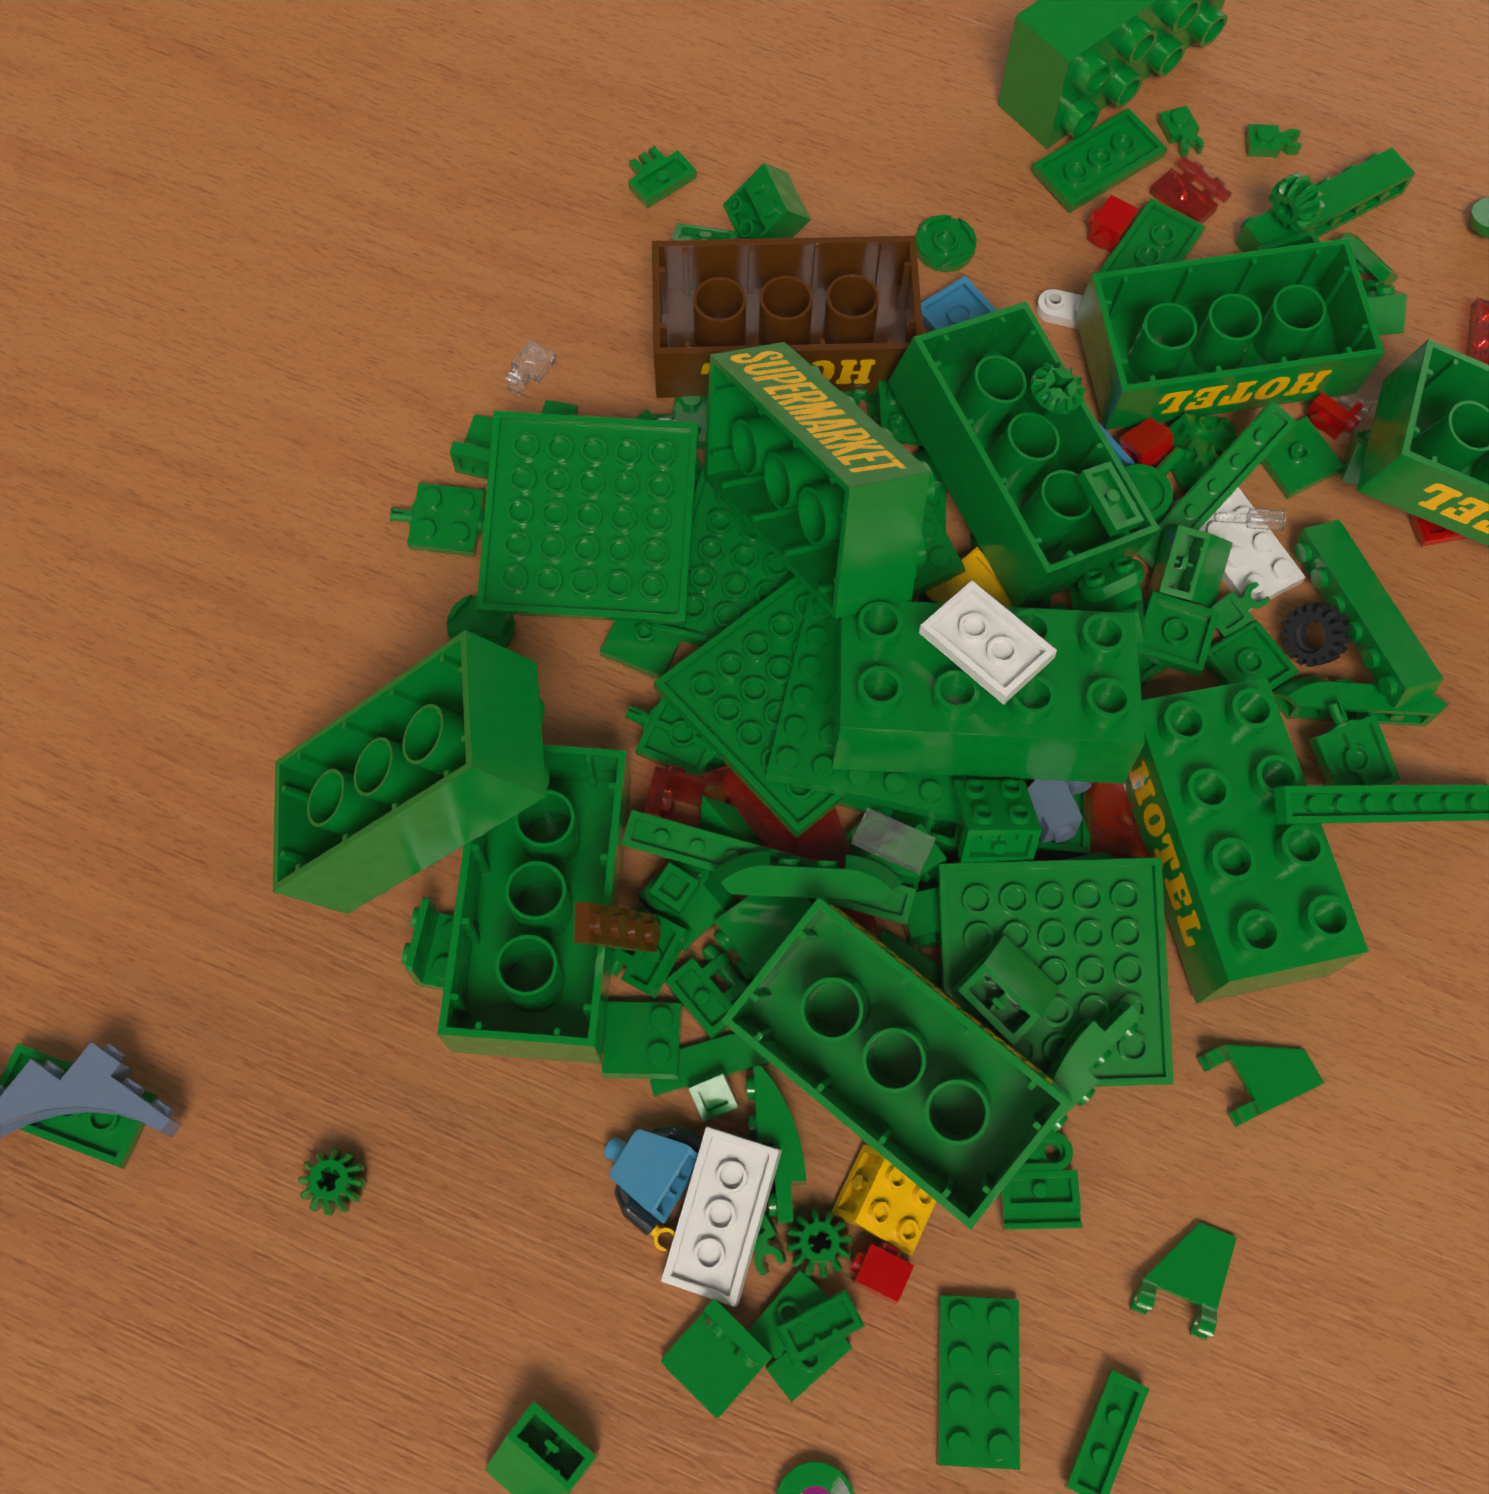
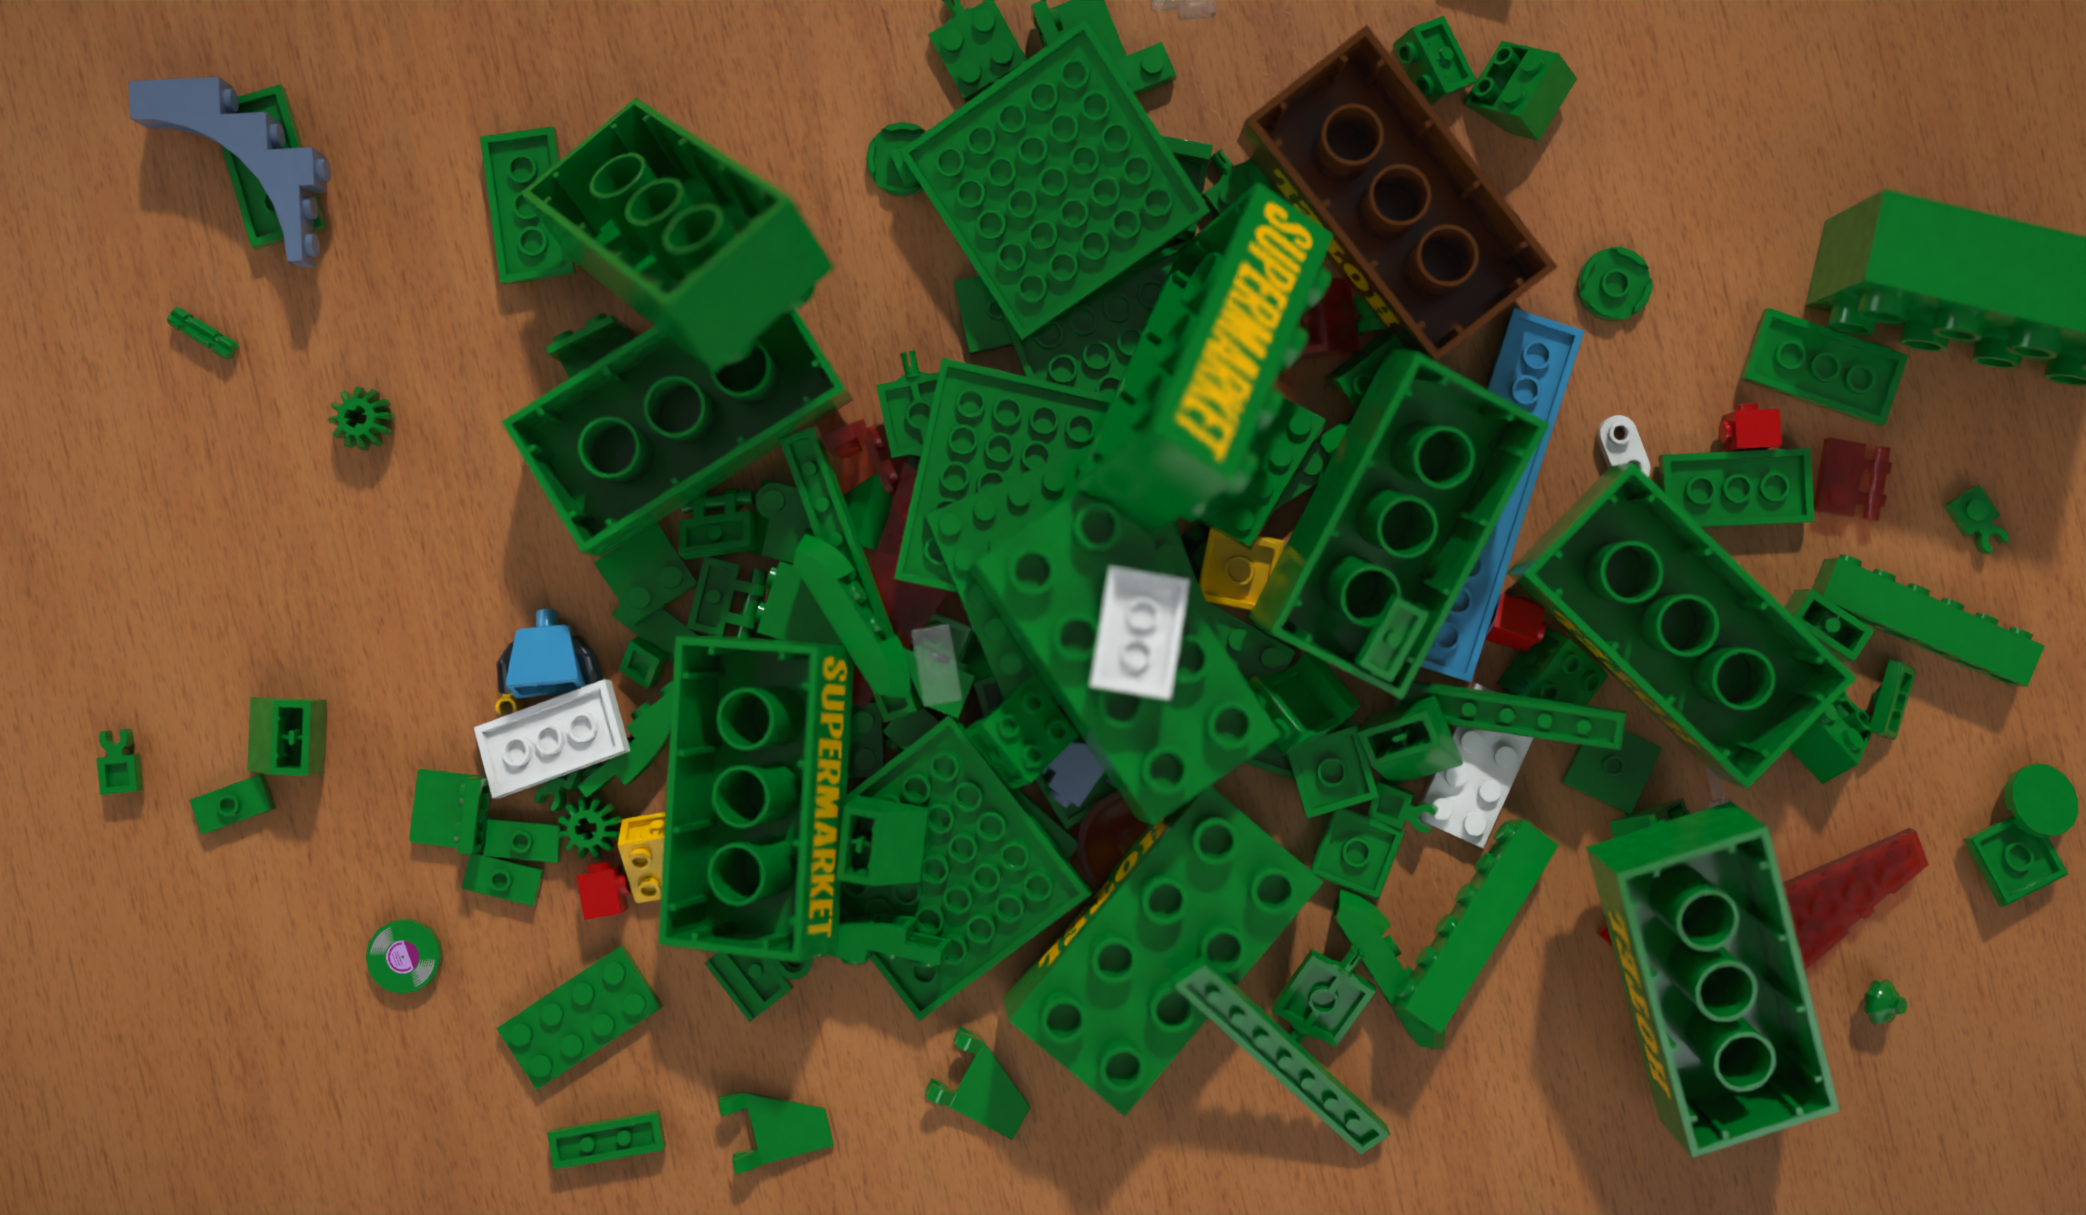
camera: 50 degrees right, 20 degrees up
(150, 1269) = (202, 333): none -> green axle
(282, 927) = (521, 240): none -> green plate
(615, 927) = (688, 496): reddish brown plate -> none
(674, 888) = (776, 510): green plate -> none
(819, 1327) = (524, 872): green plate -> none
(1055, 399) = (1455, 524): green gear -> none
(1110, 580) = (1334, 684): green plate -> none
(1154, 484) = (1464, 652): green piece -> none
(1181, 127) = (1927, 419): green plate -> none
(1255, 518) = (1505, 769): clear axle -> none
(1296, 201) = (1890, 596): green gear -> none
(1332, 417) = (1674, 768): red bracket -> none
(1334, 634) = (1436, 898): black tyre -> none

